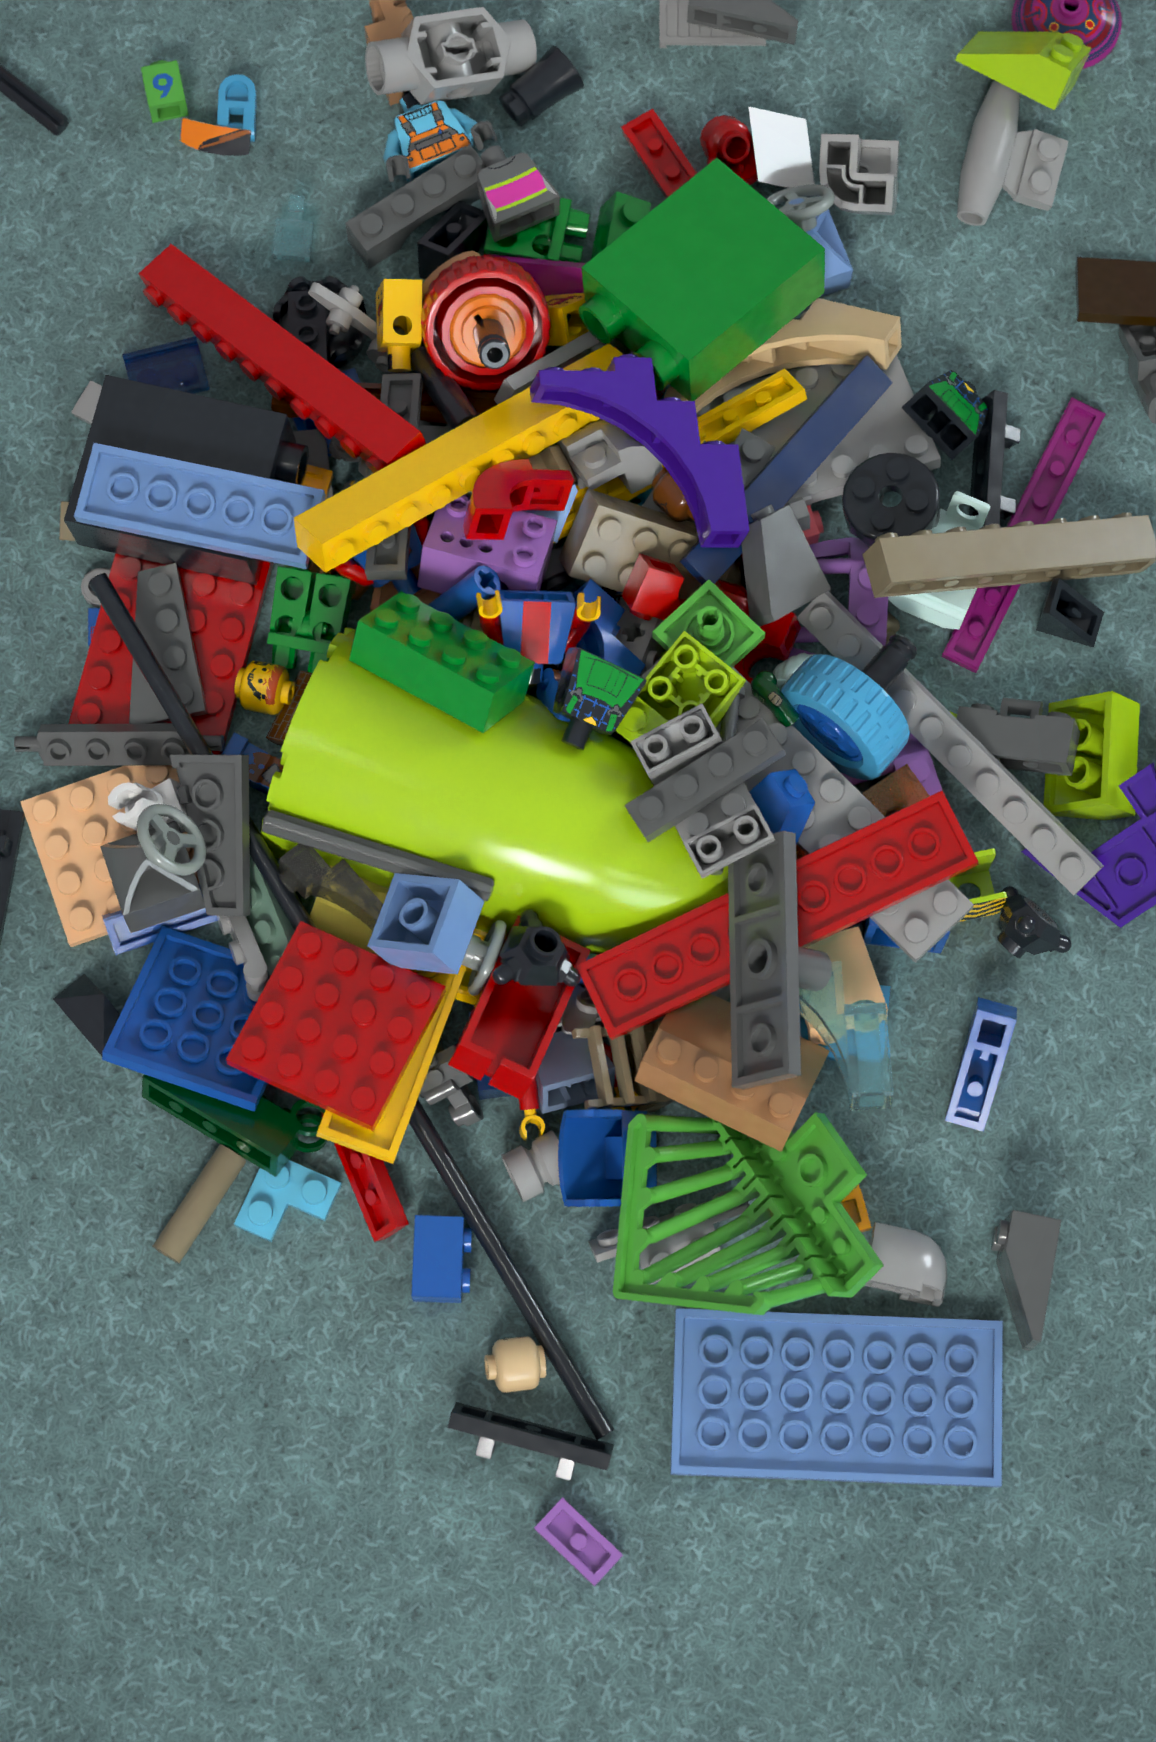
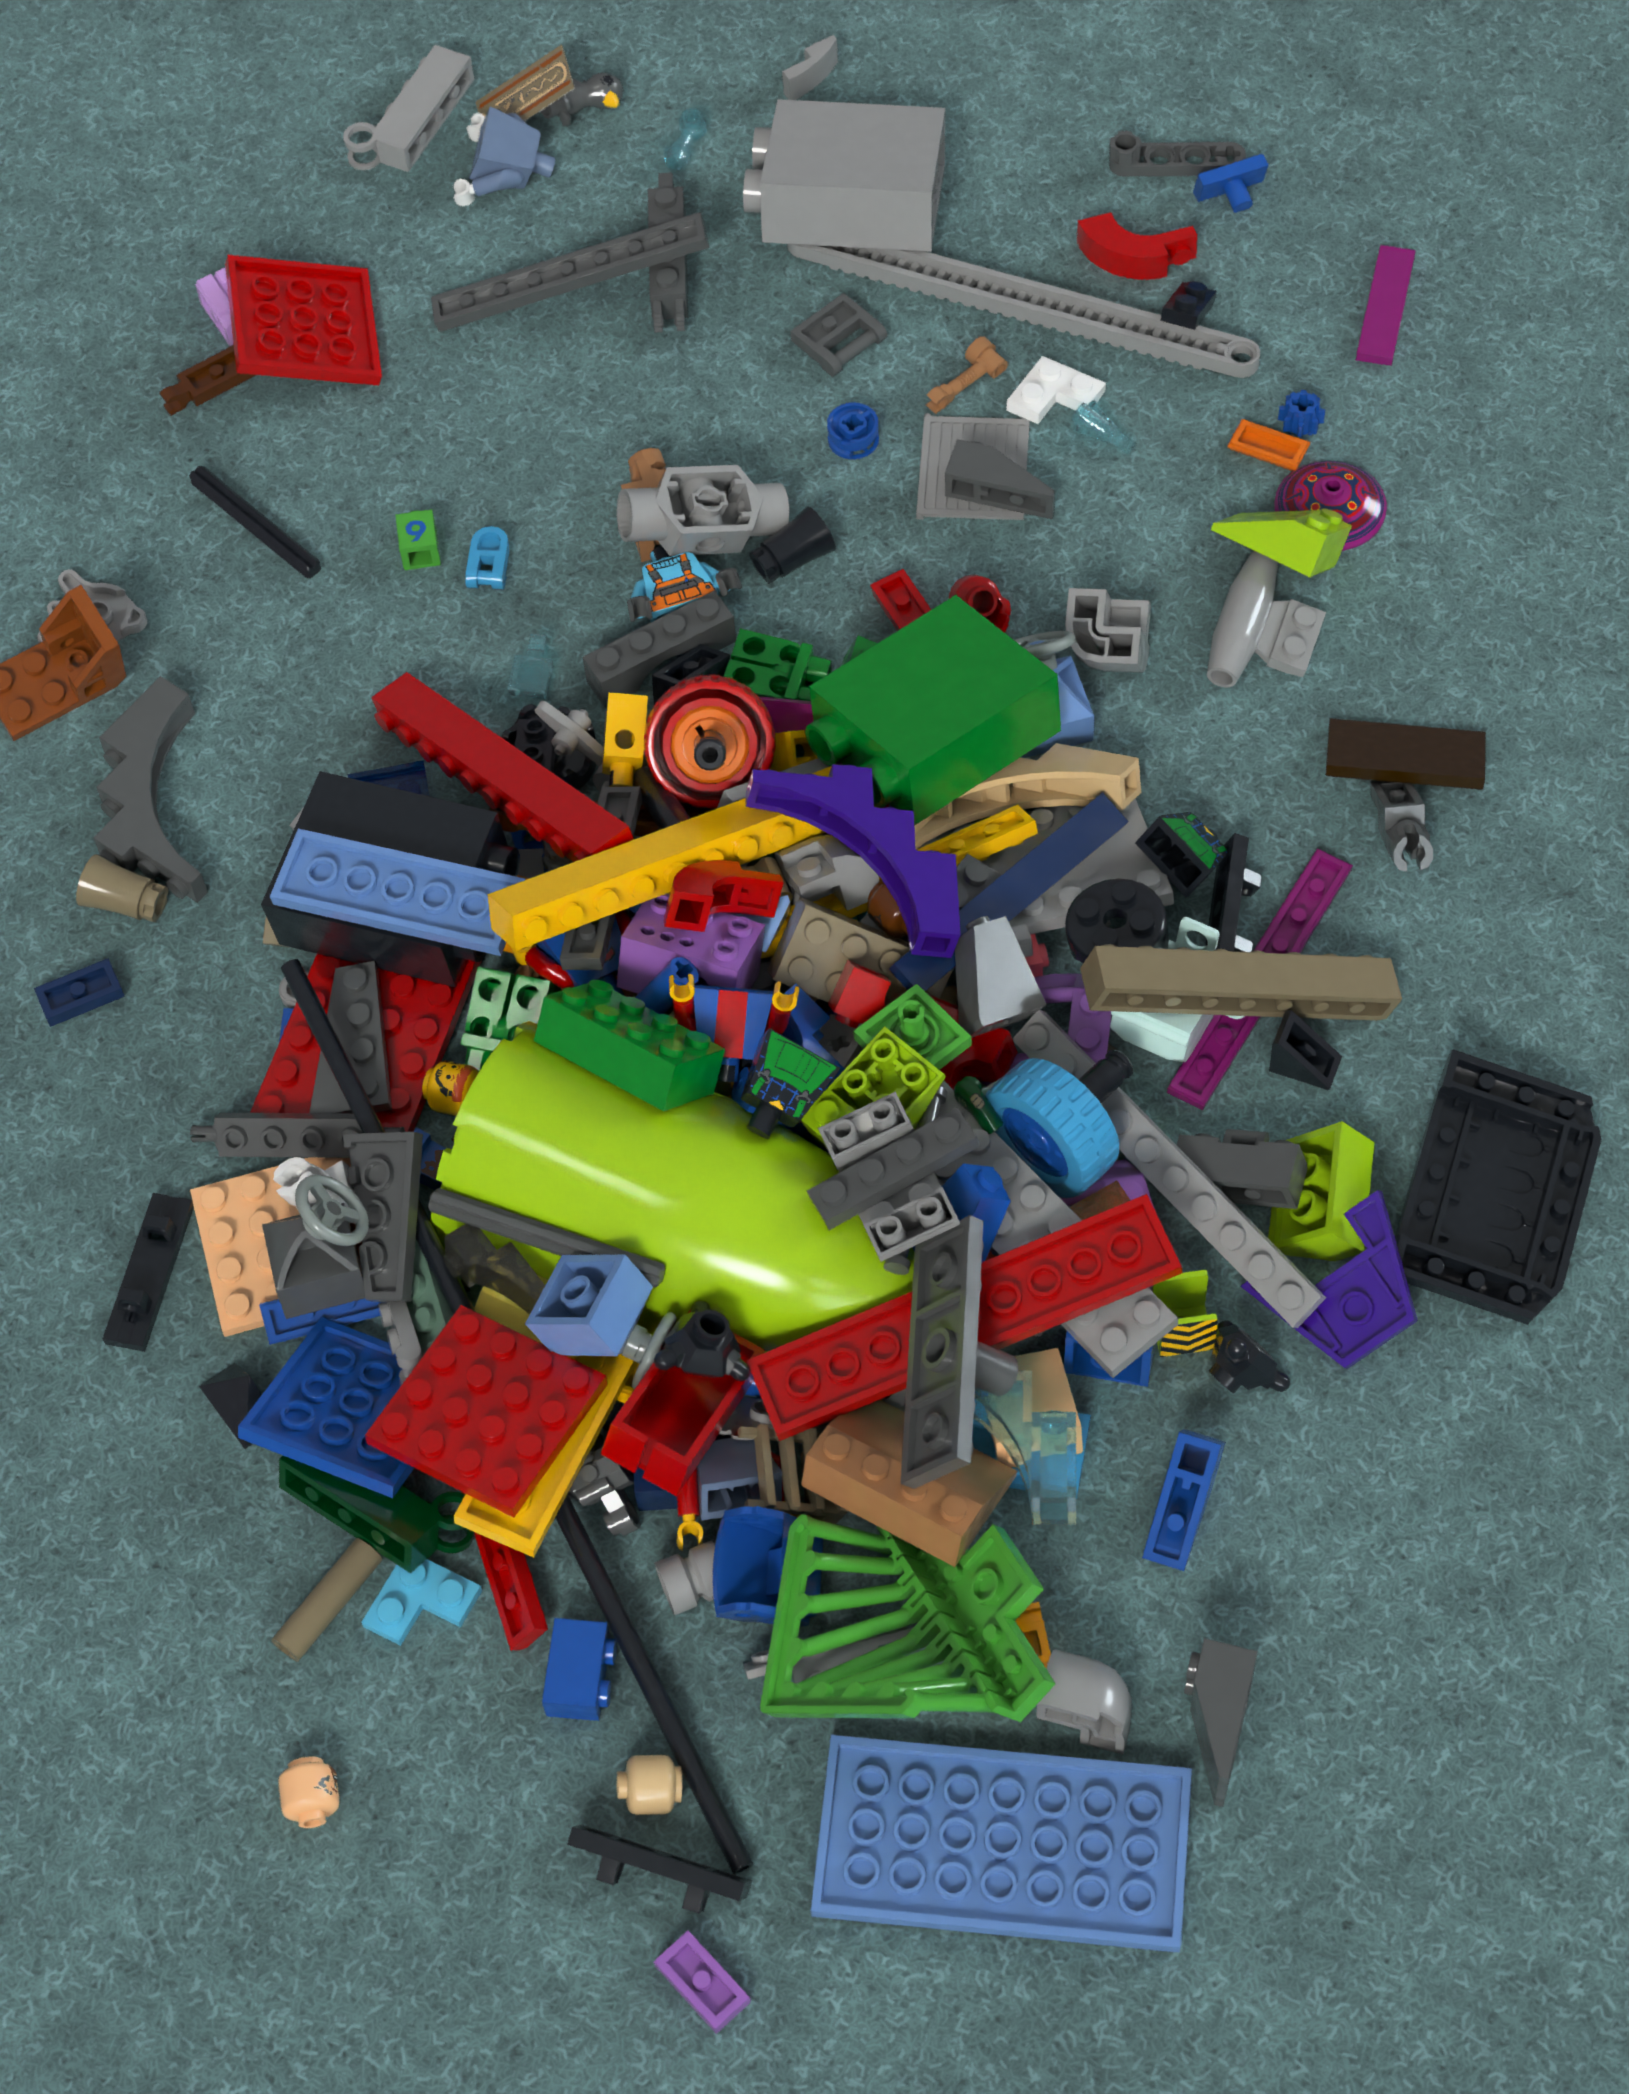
camera: 10 degrees right, 15 degrees down
(204, 1388) = (308, 1791): none -> light nougat head
(215, 138) = (464, 584): sticker -> none
(514, 193) = (754, 633): dark grey torso -> none
(781, 149) = (1028, 605): white sticker -> none

